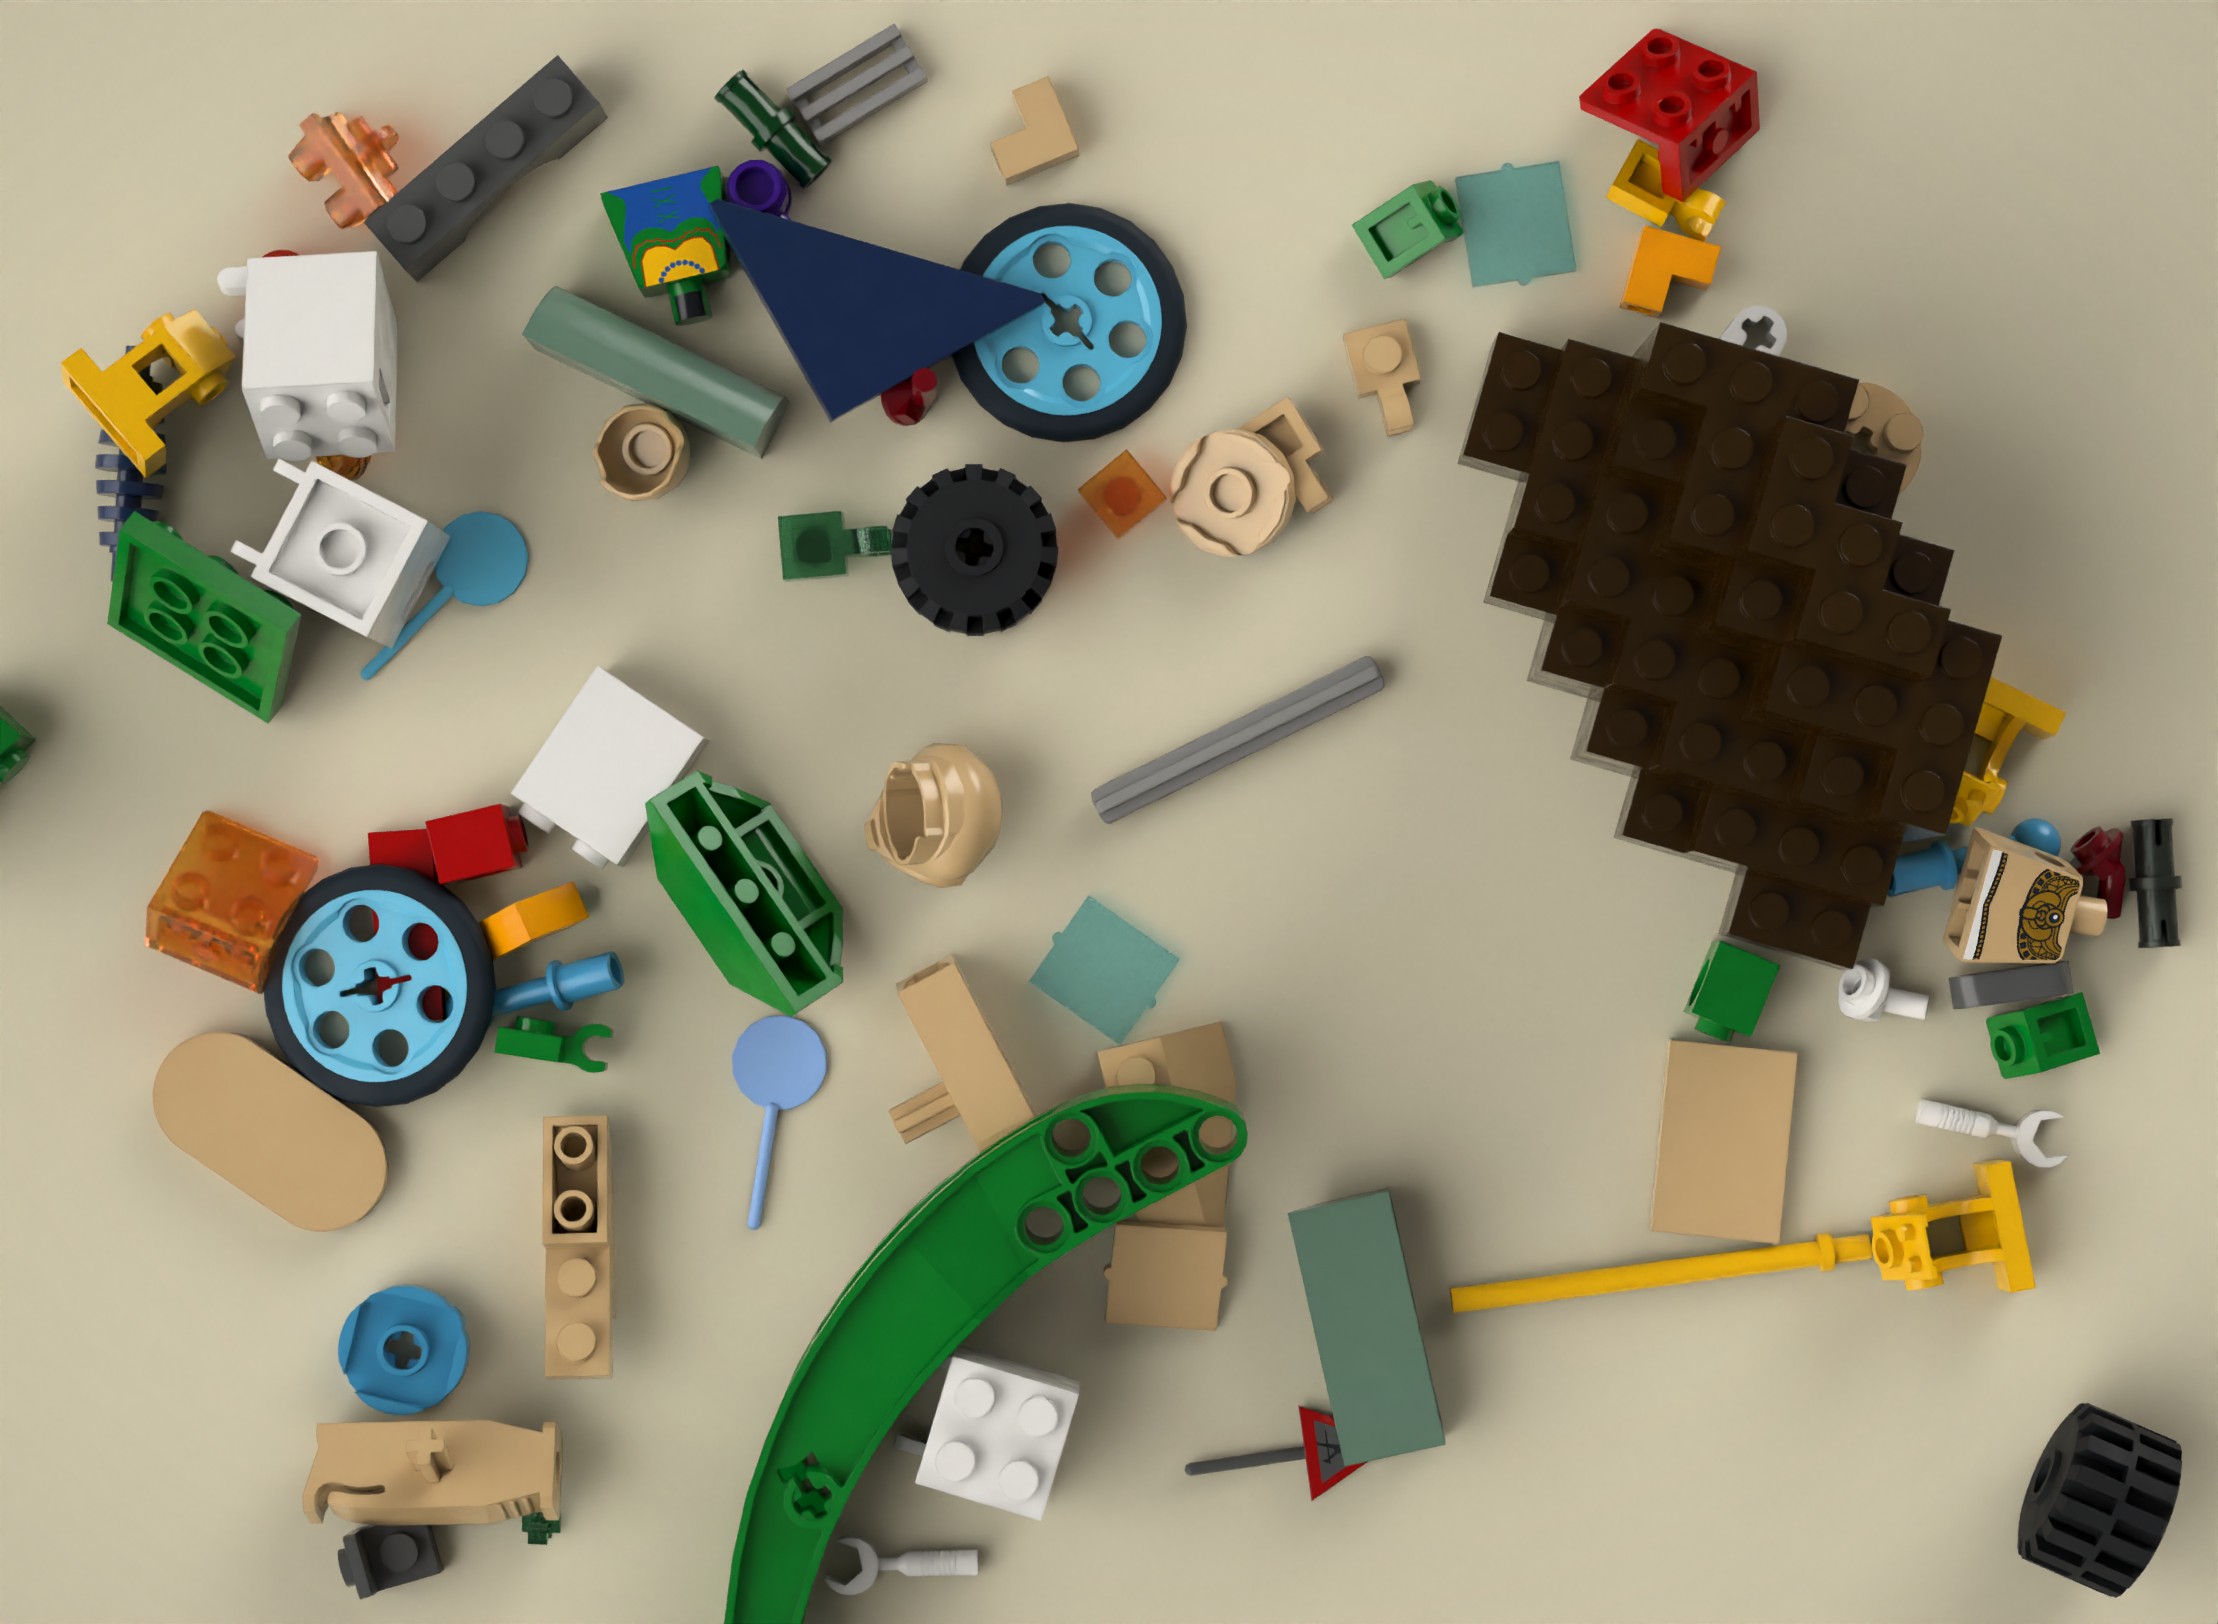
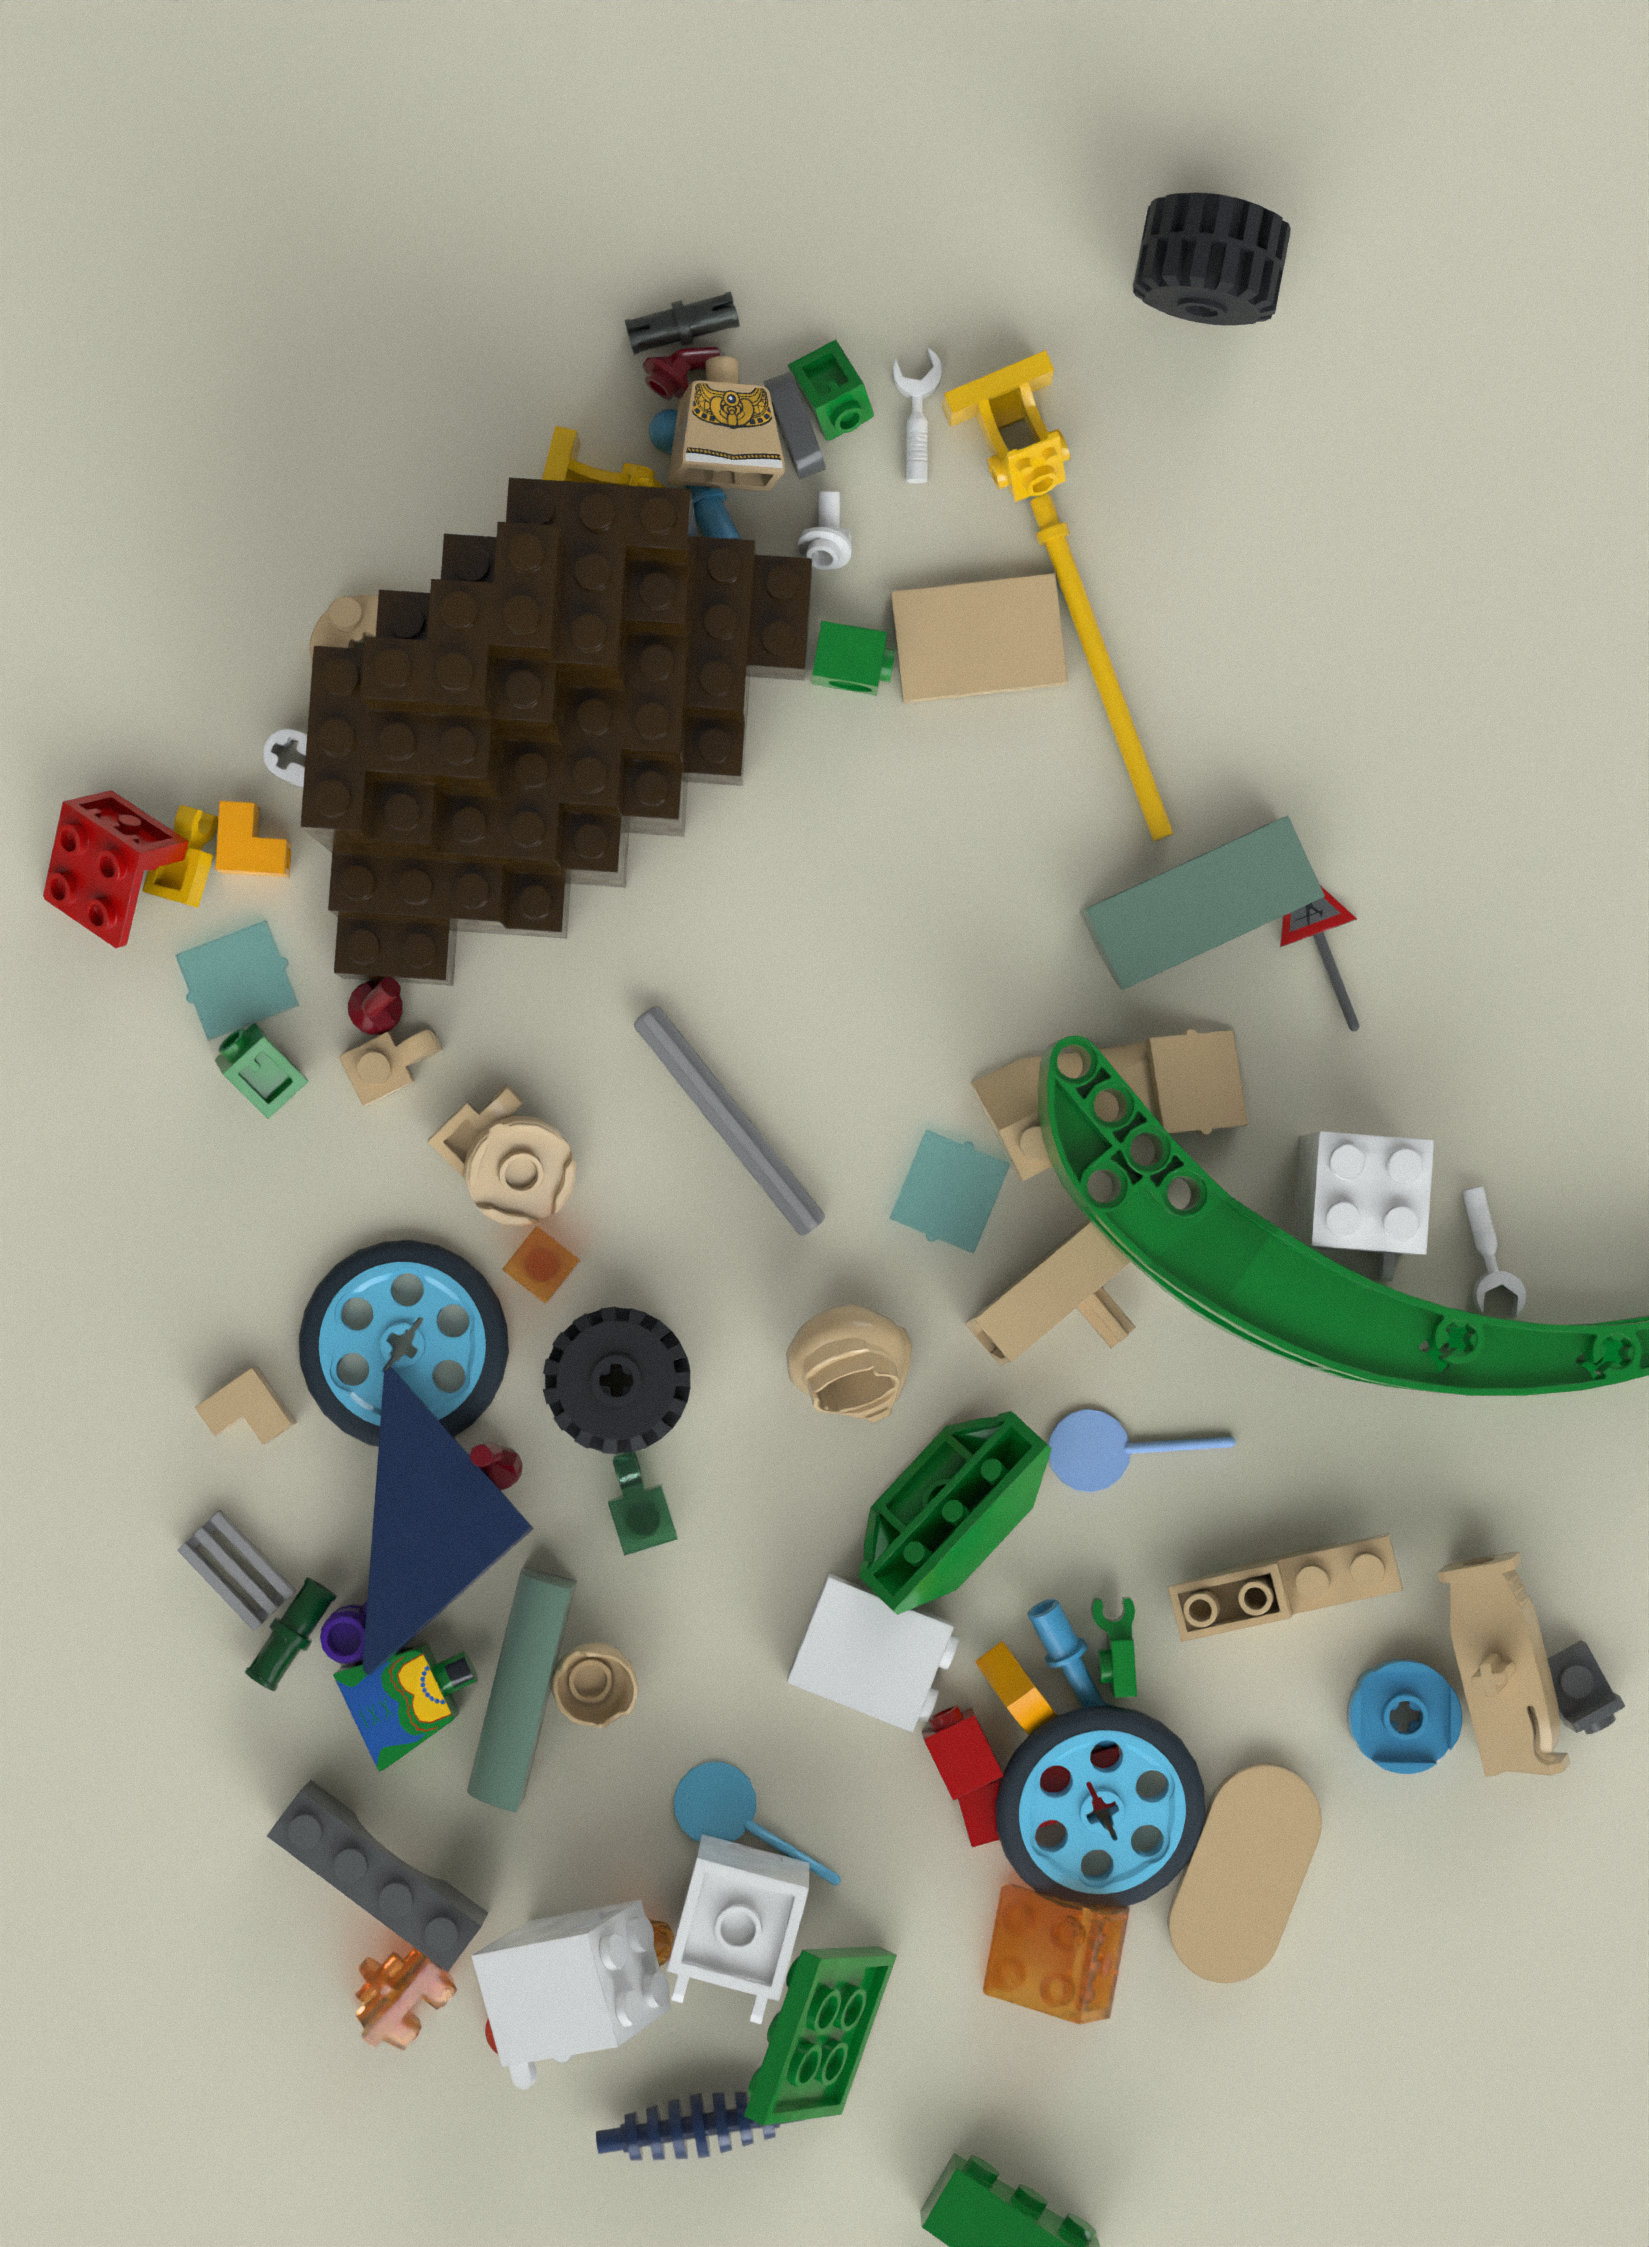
camera: 105 degrees left, 0 degrees up
(125, 402) = (650, 2142): yellow tile -> none
(539, 1528) = (1530, 1566): clear green piece -> none
(1452, 372) = (376, 1006): none -> dark red plate

